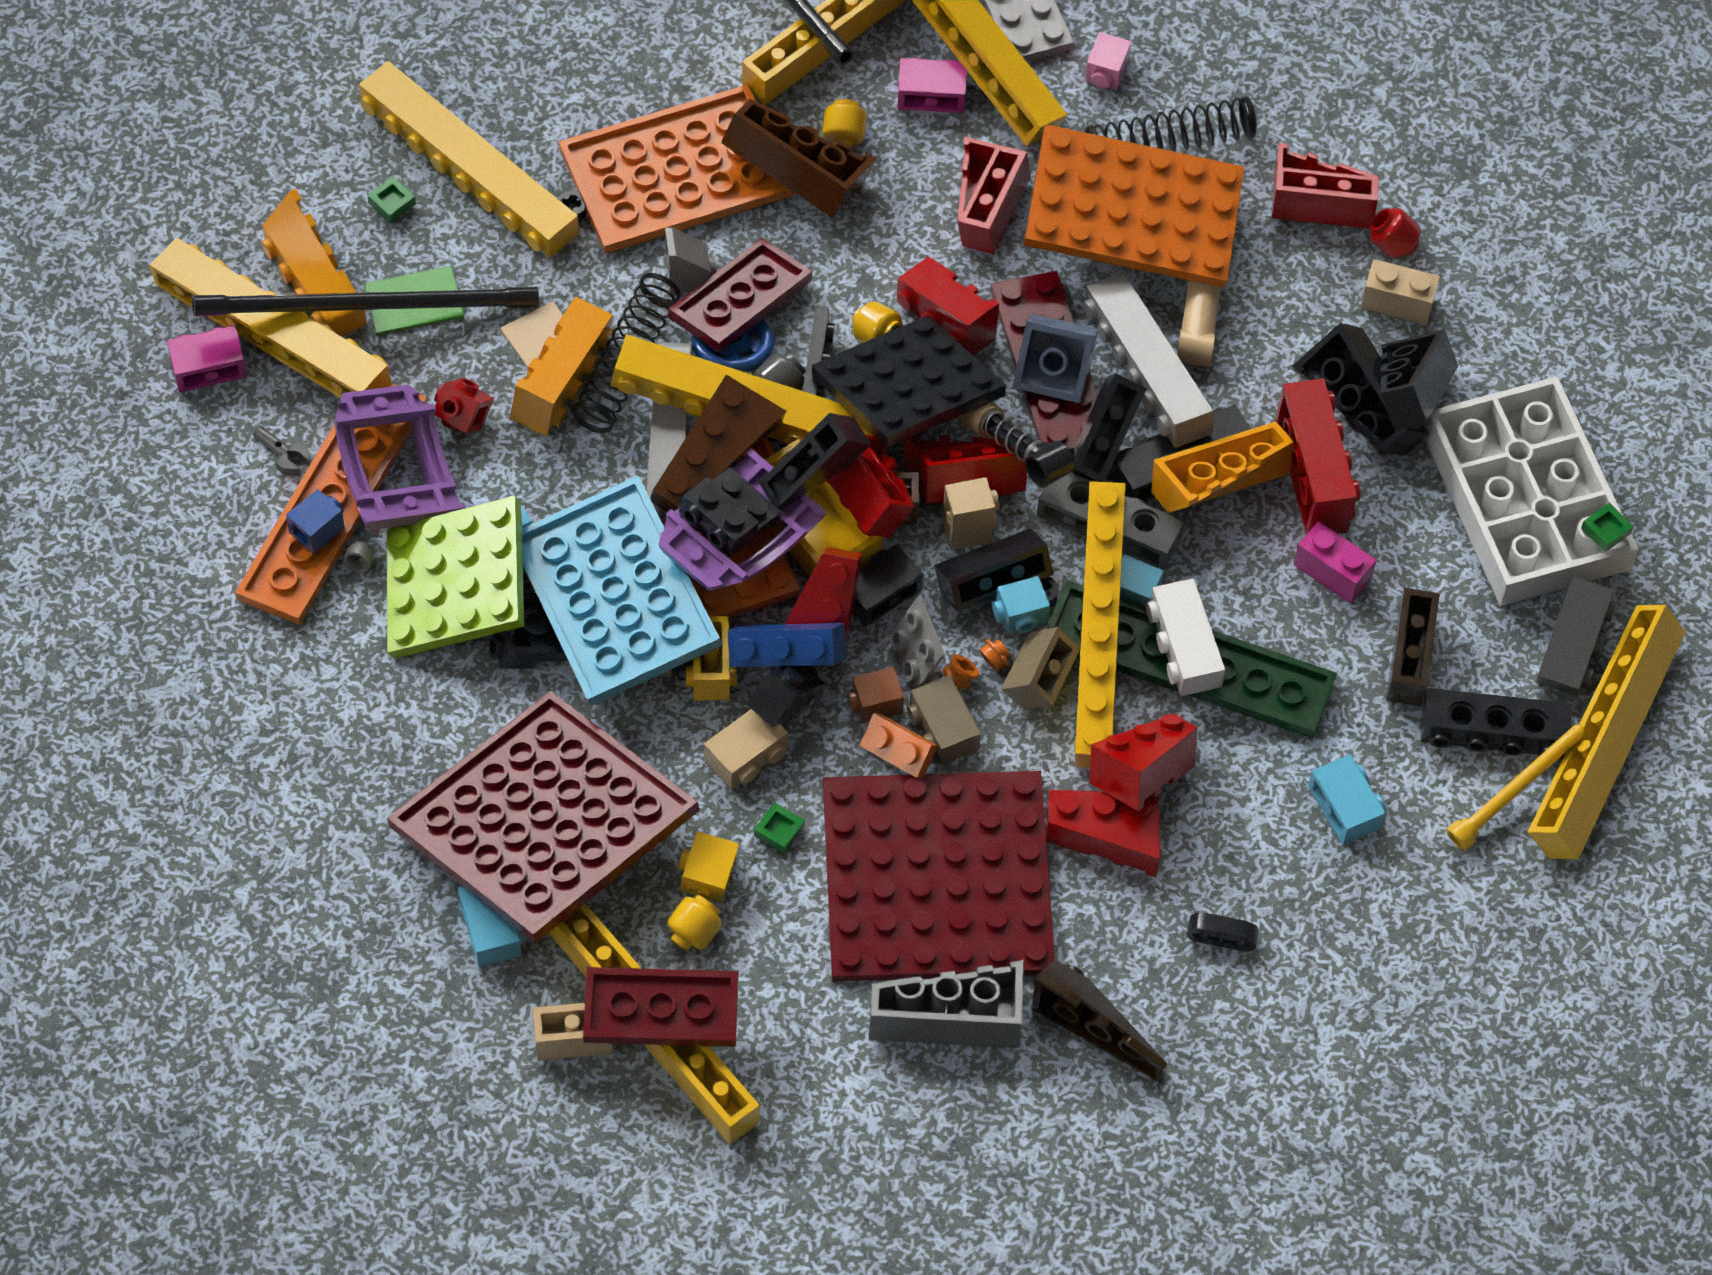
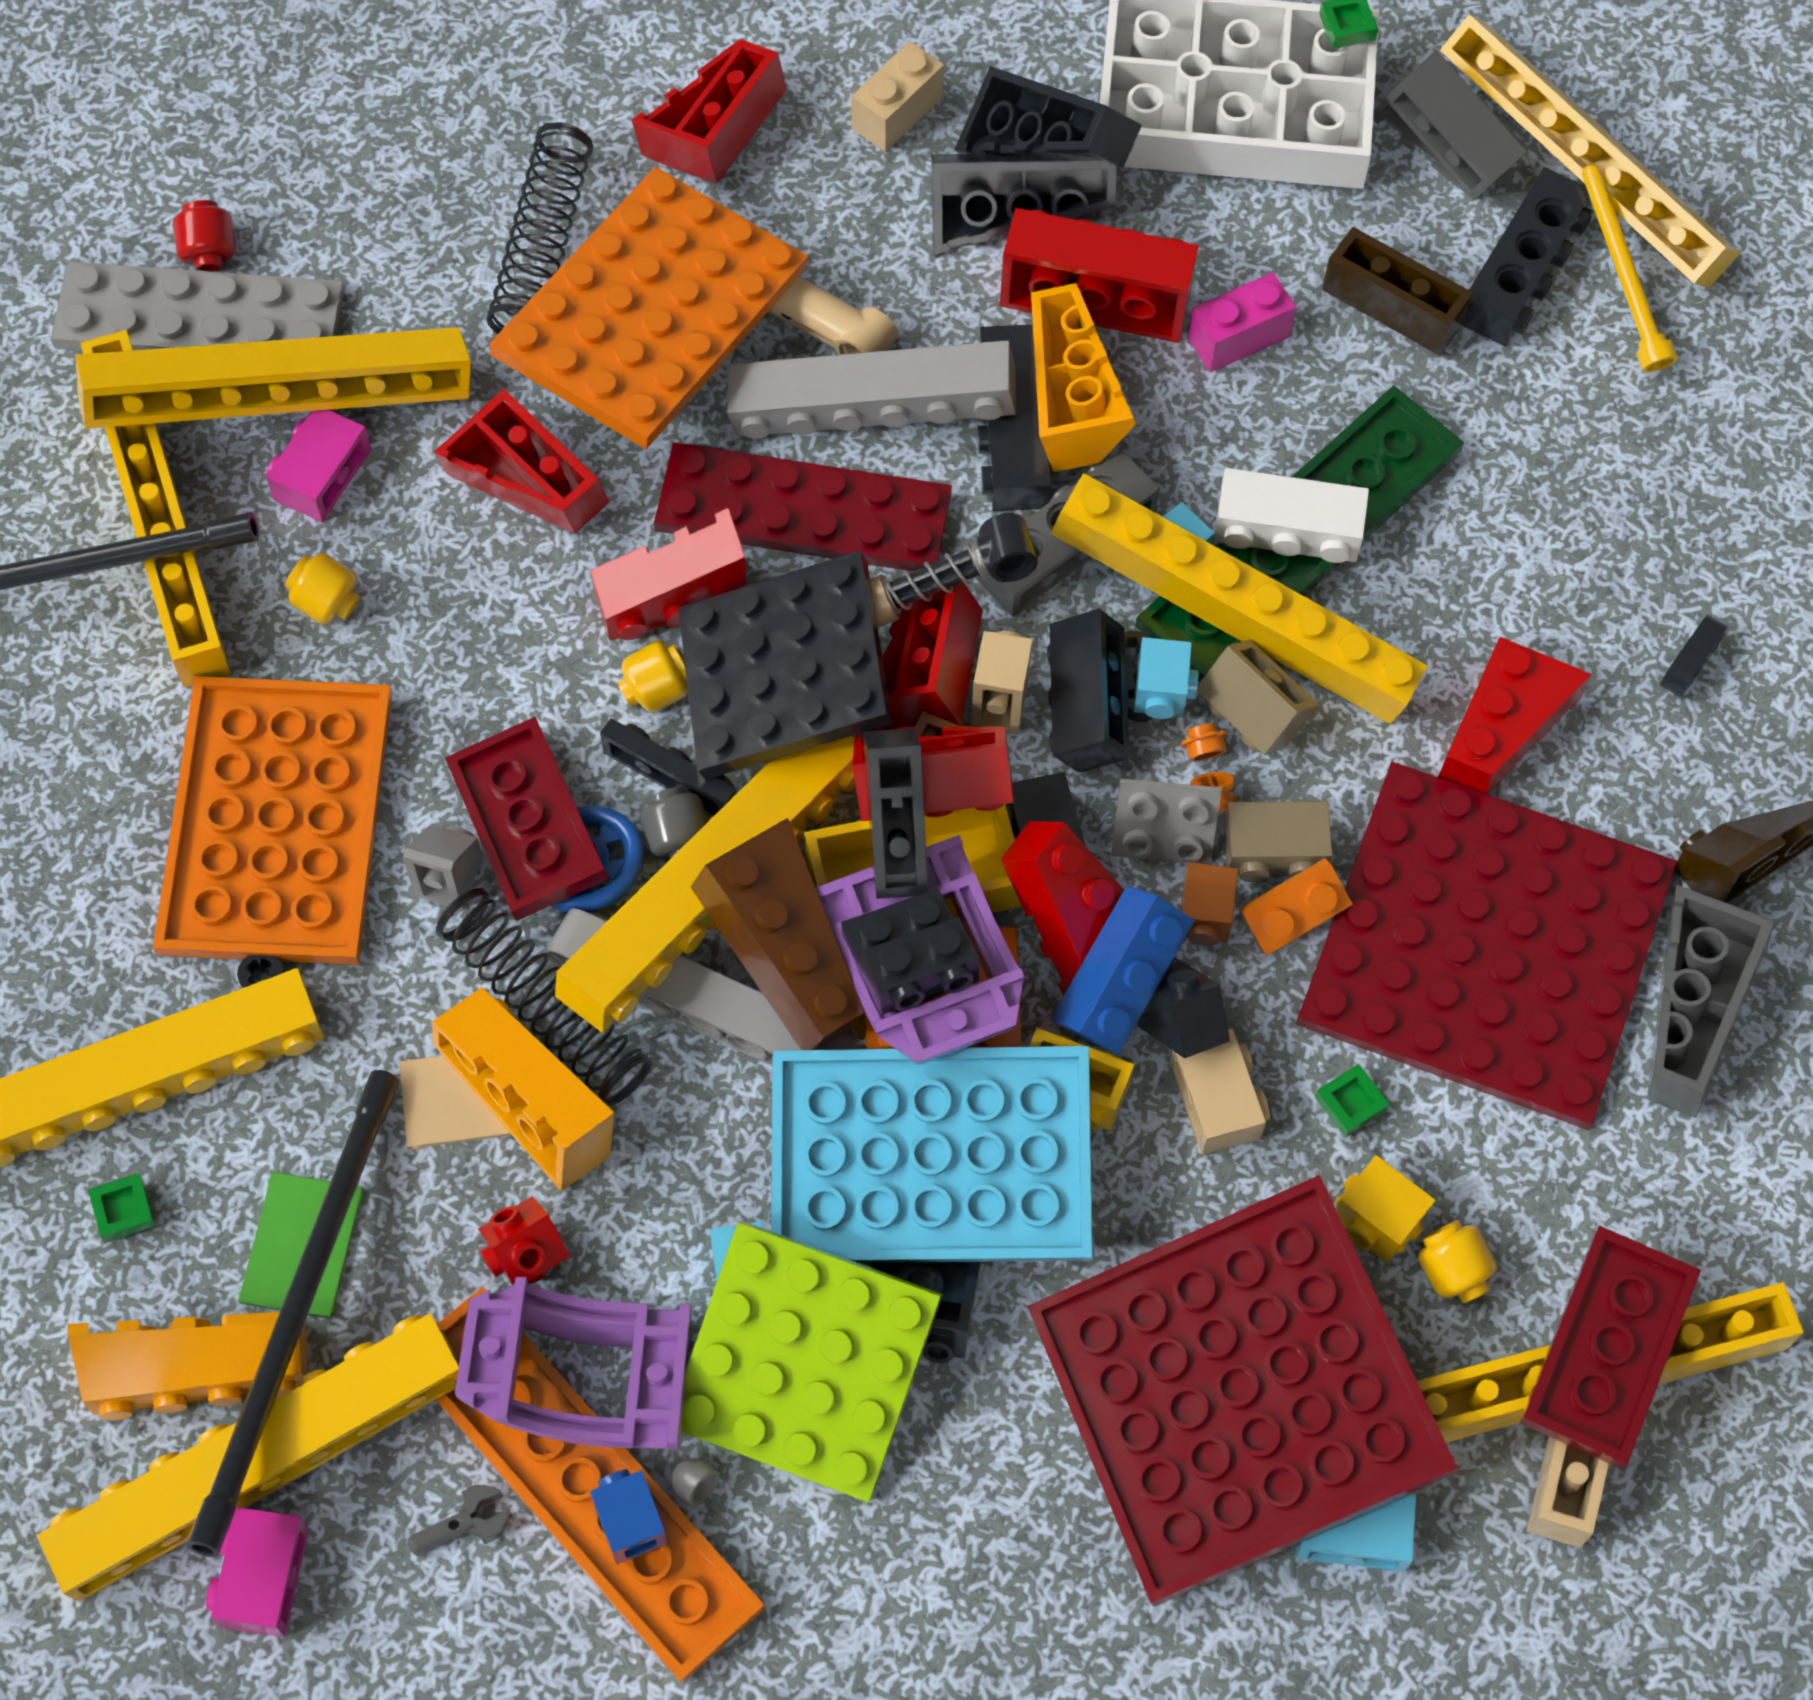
camera: 65 degrees left, 5 degrees up
(797, 156) = (361, 656): reddish brown wedge -> none
(1055, 358) = (819, 488): sand blue slope -> none
(1106, 427) = (953, 471): black brick -> none
(1107, 61) = (395, 255): bright pink brick -> none
(1143, 759) = (1457, 632): red wedge -> none
(1347, 799) = (1567, 448): medium azure brick -> none
(1395, 232) = (813, 64): red head -> none

